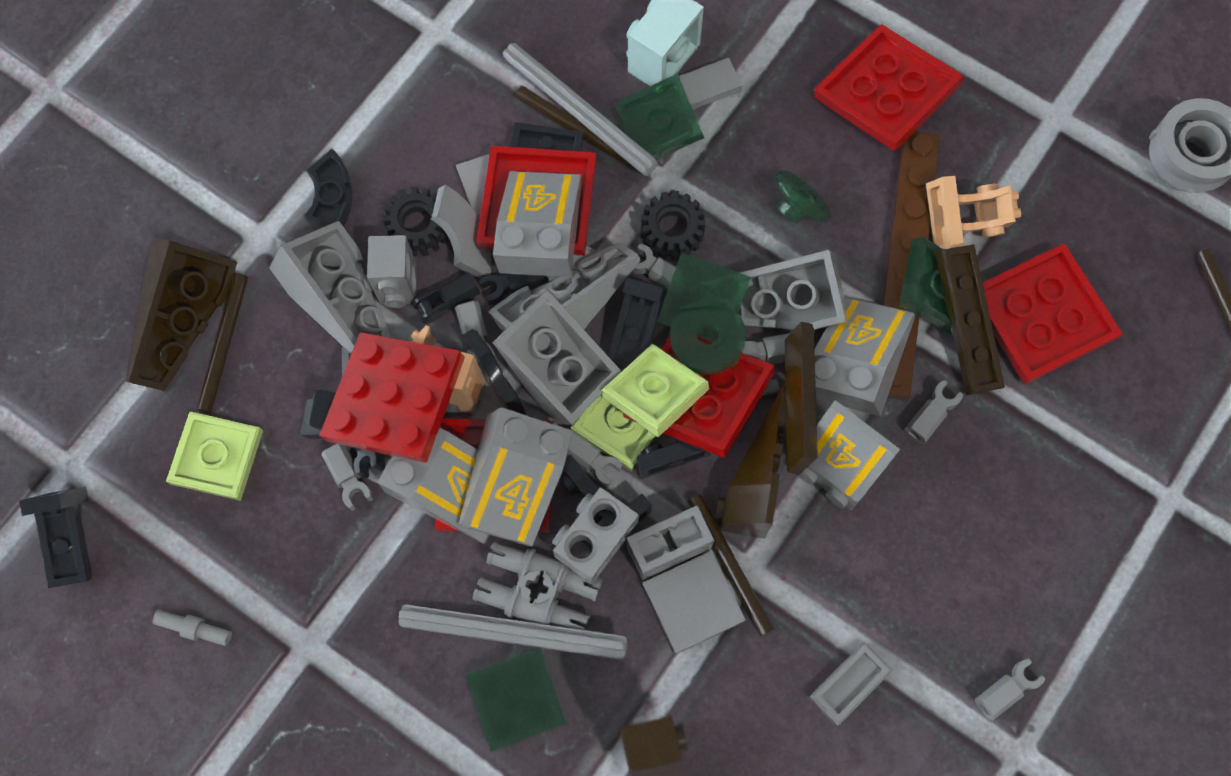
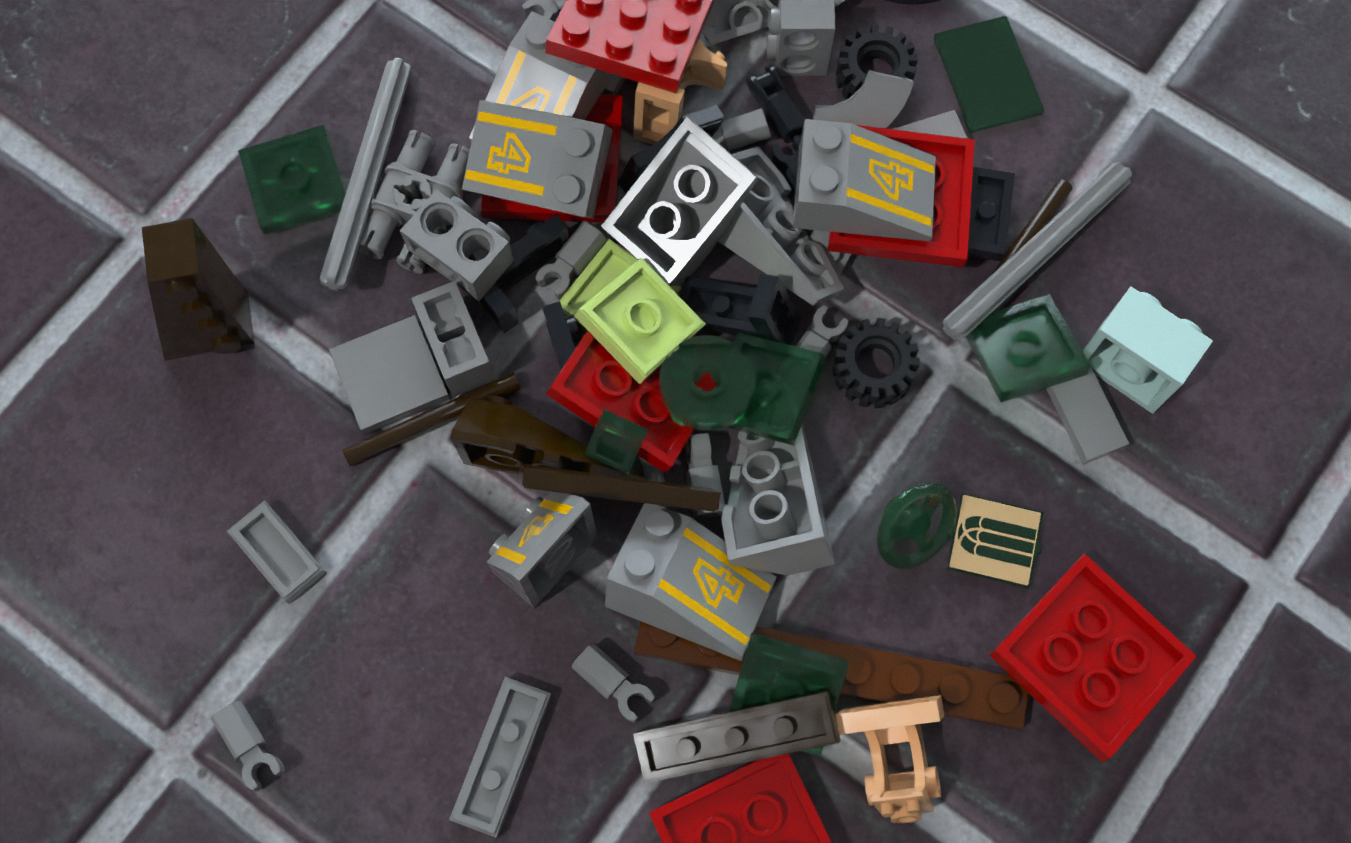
camera: 90 degrees right, 0 degrees up
(419, 142) = (988, 74): none -> clear green piece
(761, 402) = (616, 441): none -> clear green tile
(803, 150) = (995, 541): none -> piece
(995, 493) = (500, 757): none -> light grey tile

